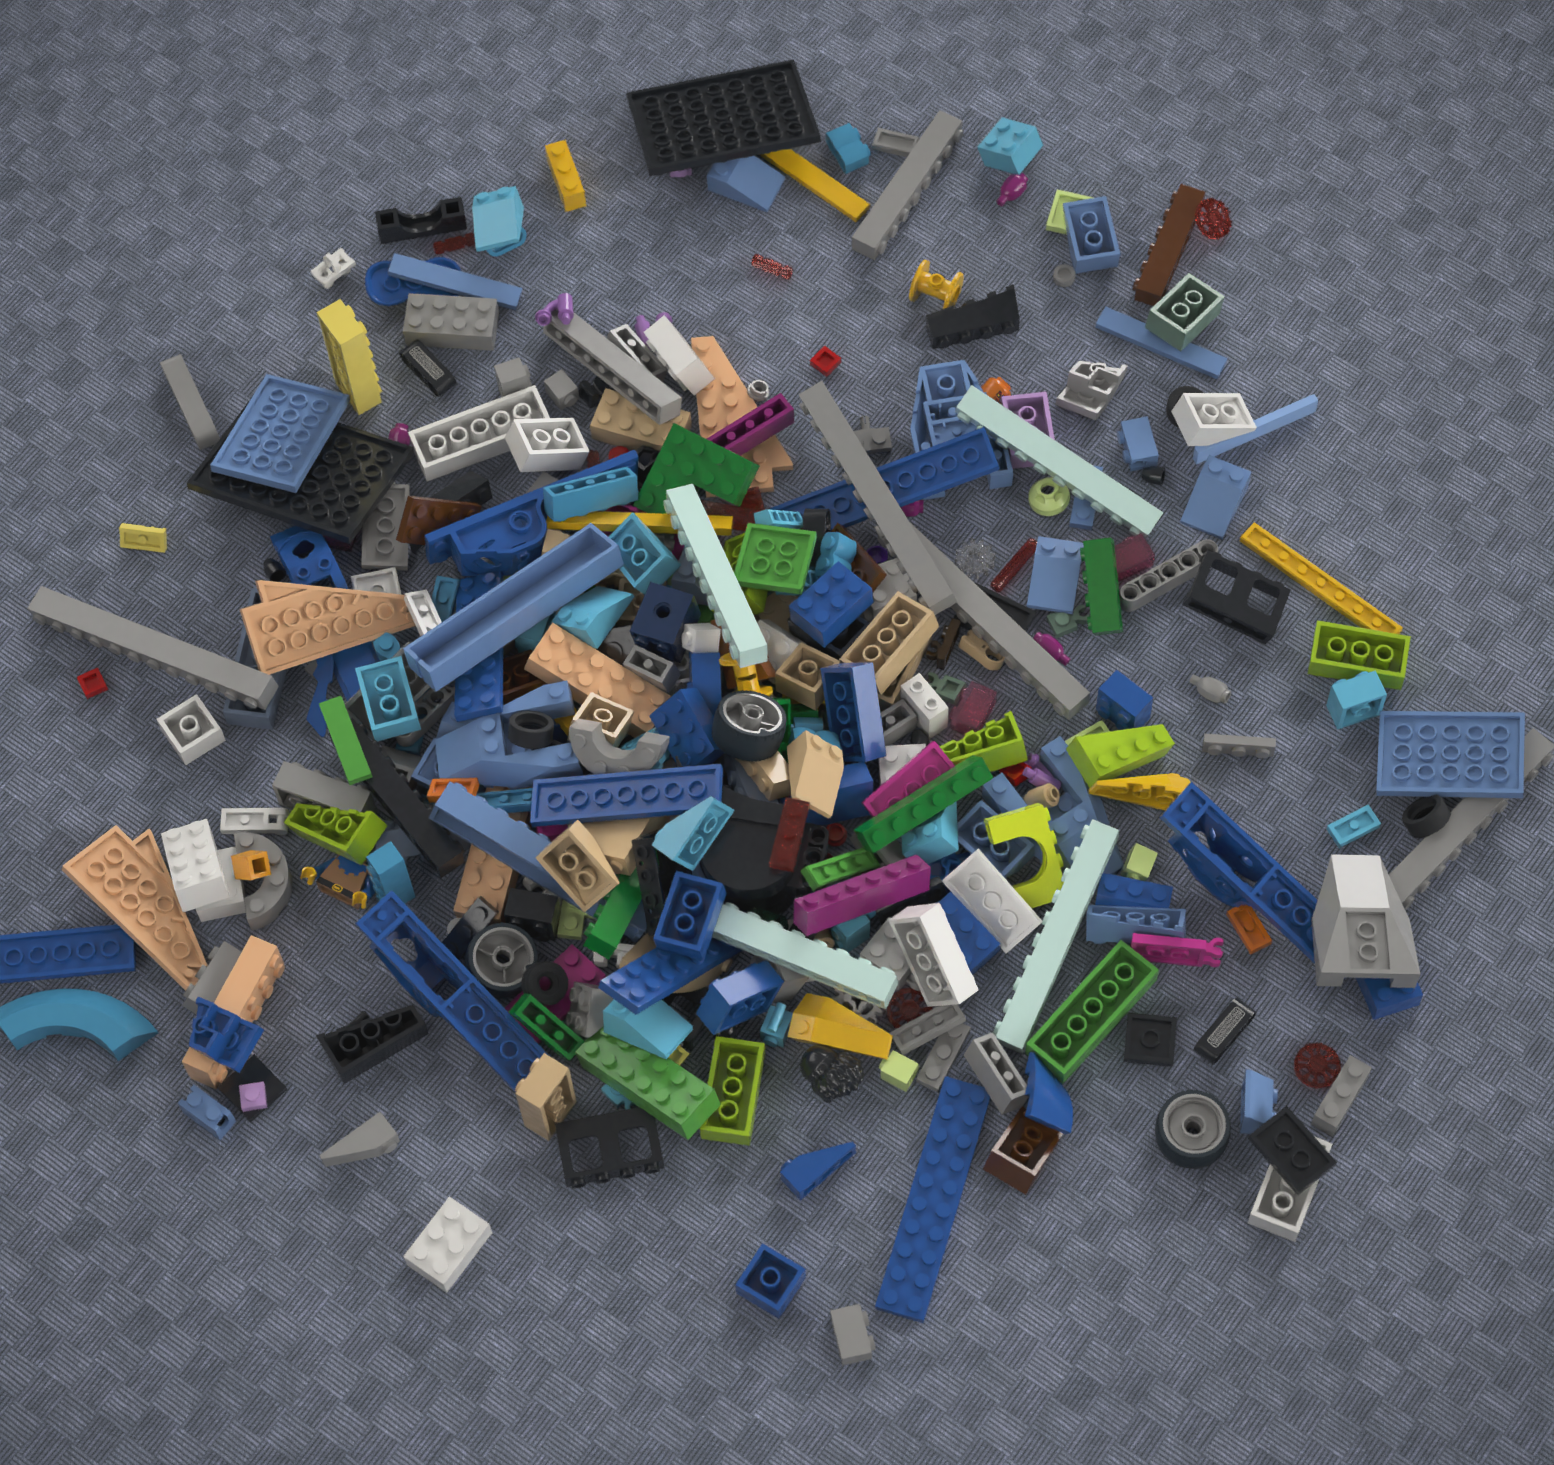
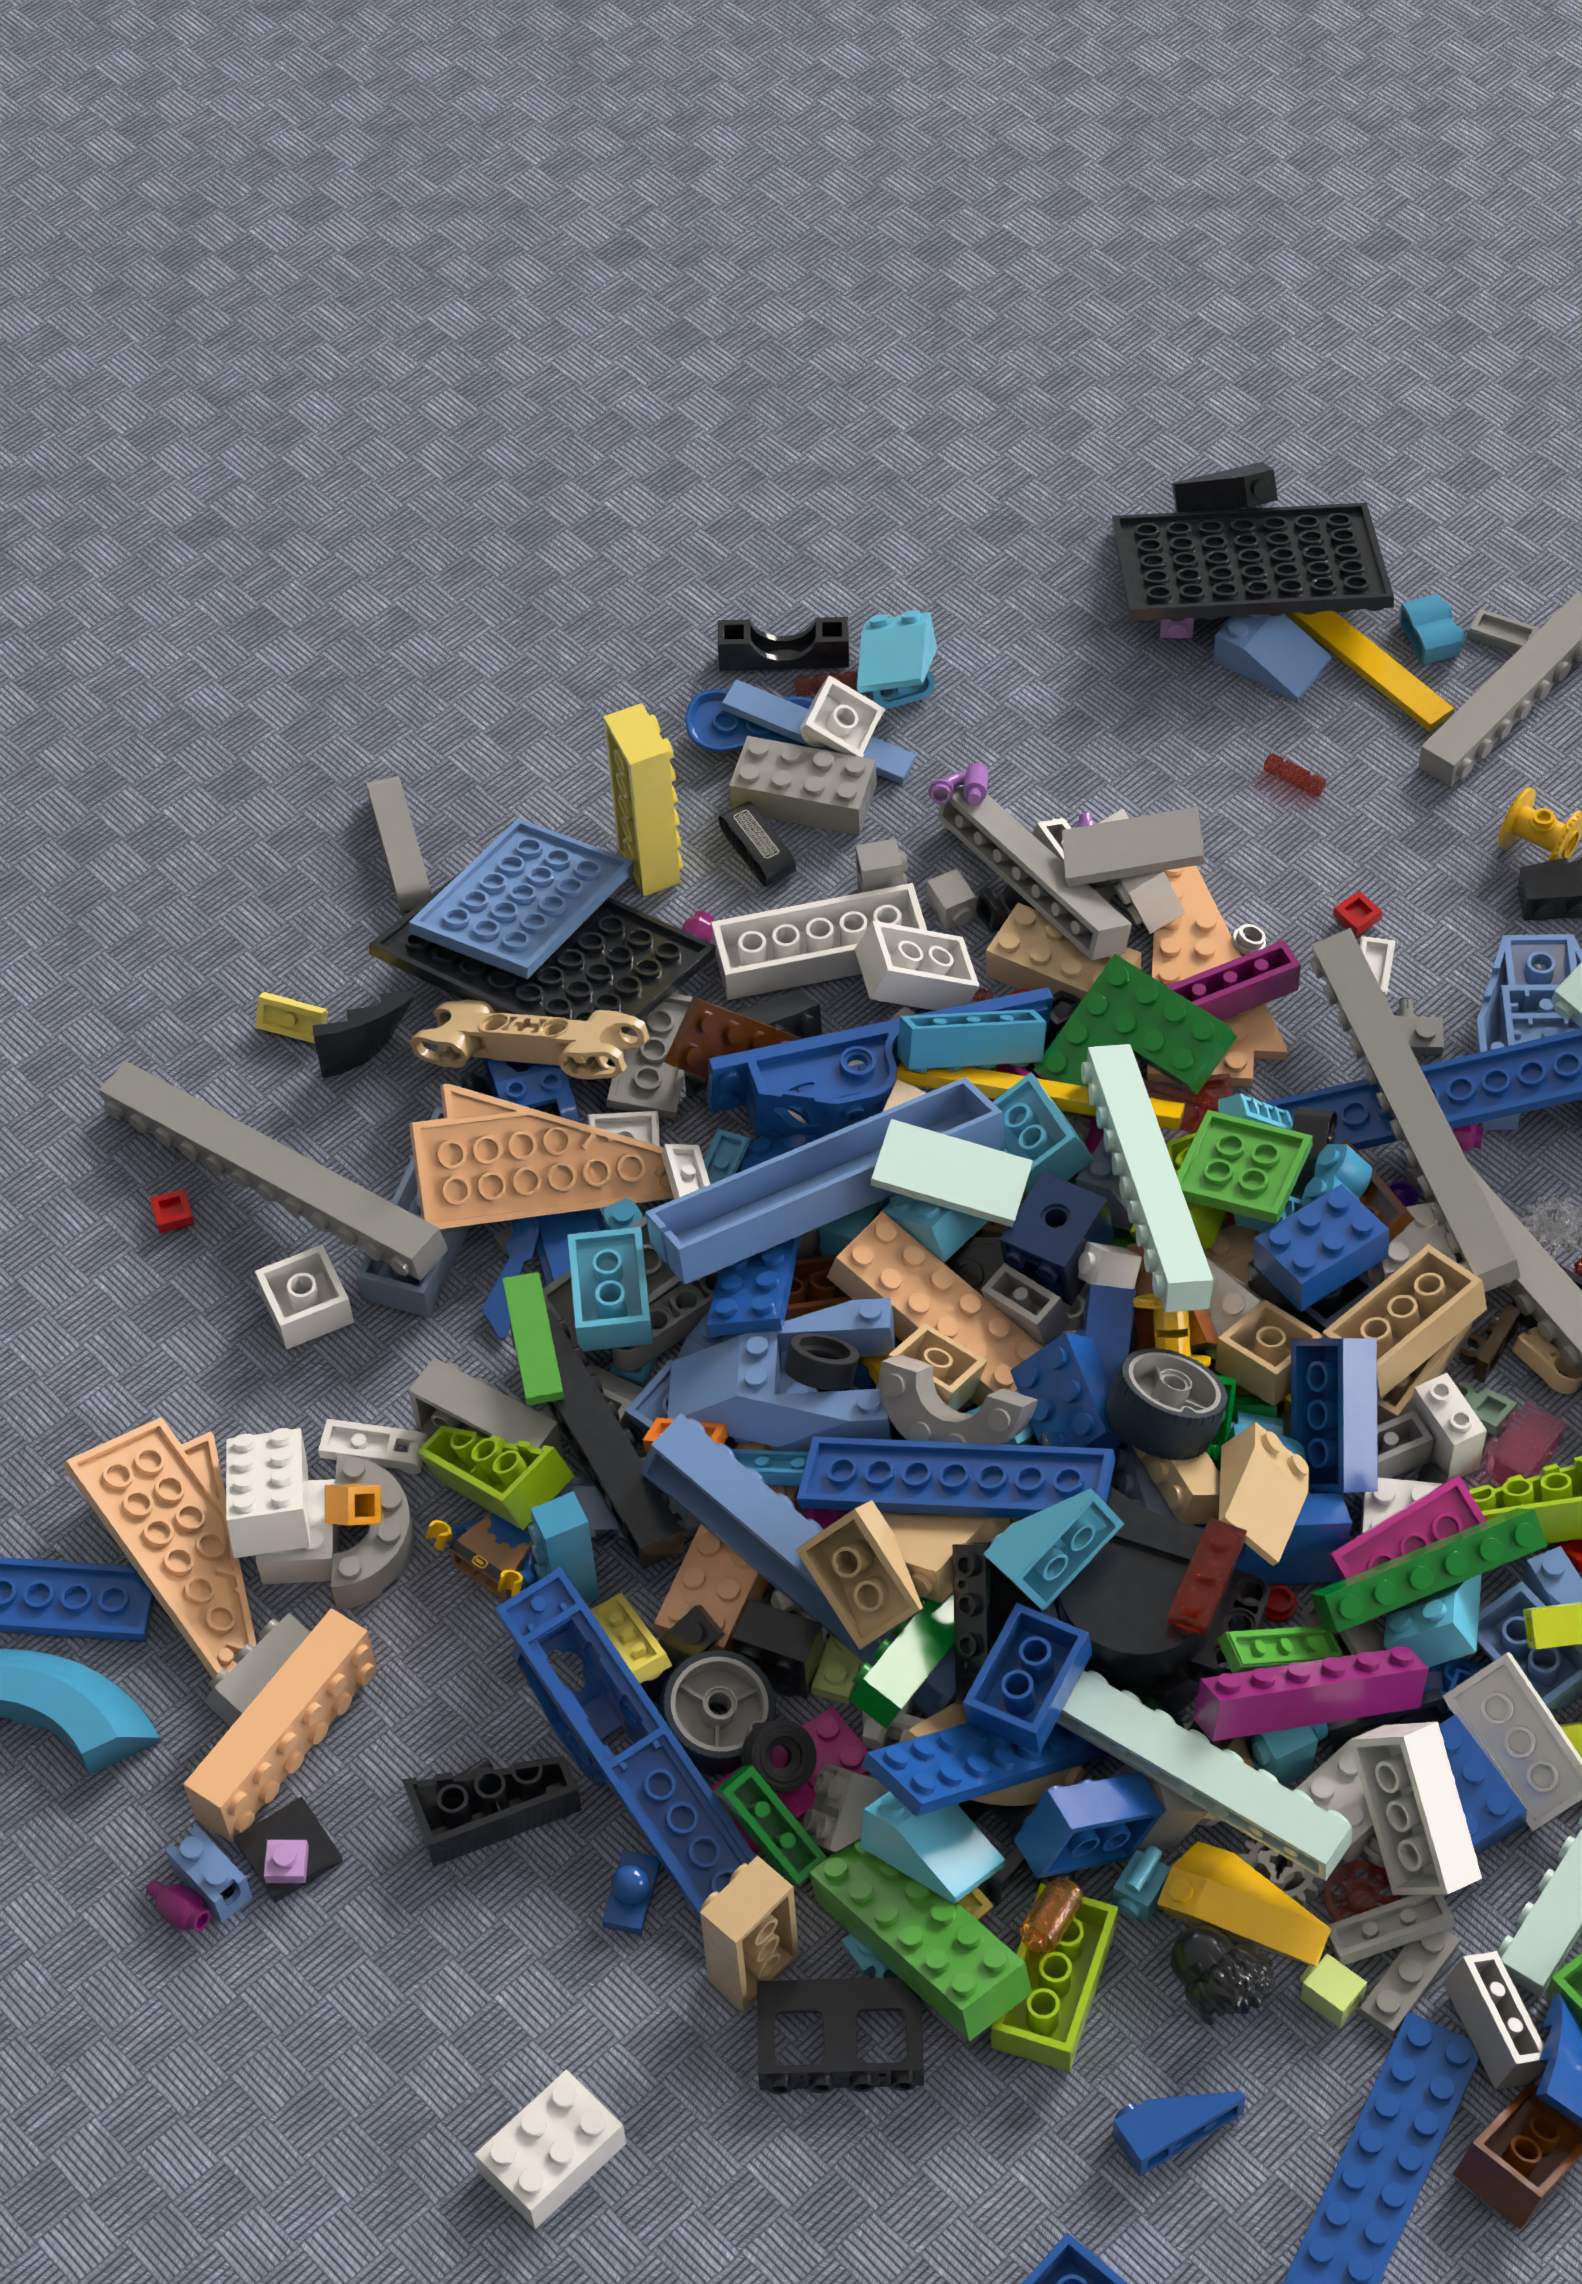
camera: 10 degrees right, 10 degrees down
(192, 1134) = (180, 1905): none -> magenta plant
(195, 541) = (355, 1041): none -> black slope
(223, 1035) = (256, 1753): blue slope -> none
(337, 538) = (574, 1045): none -> tan piece
(341, 266) = (654, 684): white hips -> none
(365, 1142) = (448, 1963): light grey slope -> none
(440, 923) = (631, 1638): none -> light yellow plate
(468, 273) = (840, 719): none -> white slope
(468, 1080) = (631, 1892): none -> blue tile
(565, 175) = (1005, 613): yellow brick -> none
(592, 592) = (951, 1173): none -> light aqua tile
(674, 343) = (1133, 846): none -> light grey tile
(699, 63) = (1226, 489): none -> black slope
(725, 1055) = (1051, 1915): none -> clear orange head
(842, 394) = (1379, 957): none -> white tile

